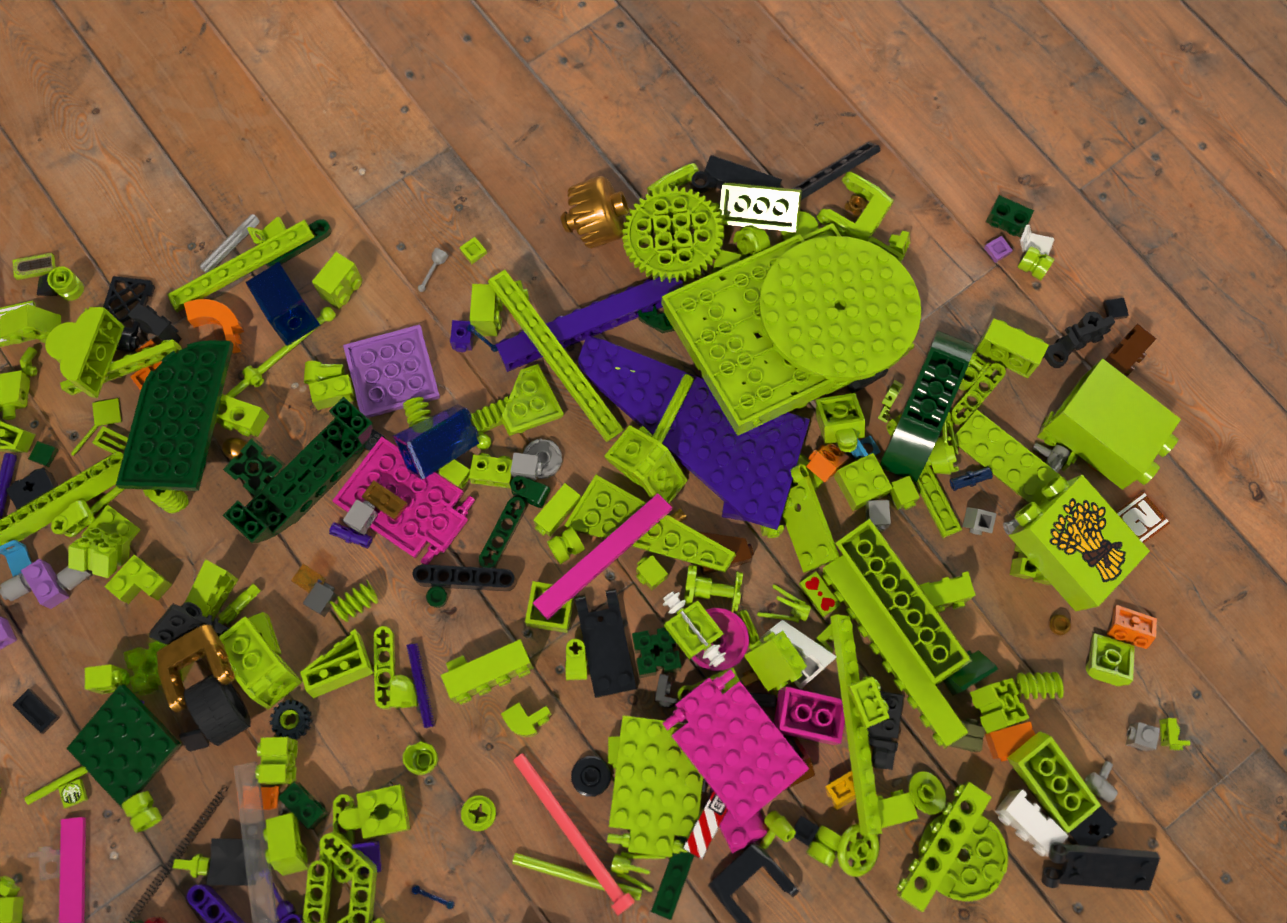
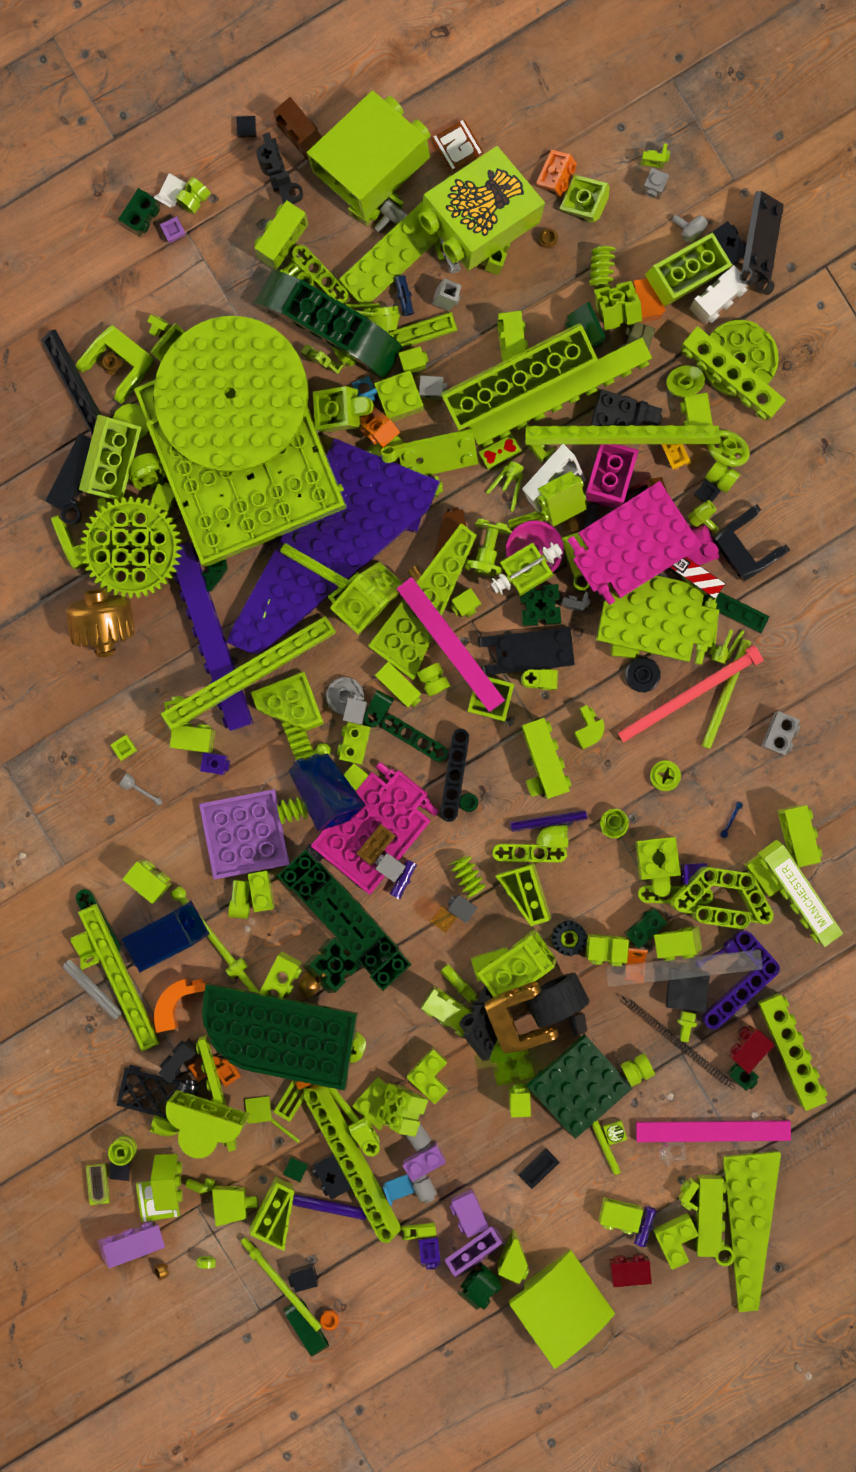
camera: 80 degrees left, 15 degrees up
(471, 328) = (228, 734): clear blue hinge -> none
(868, 701) = (607, 421): lime bracket -> none

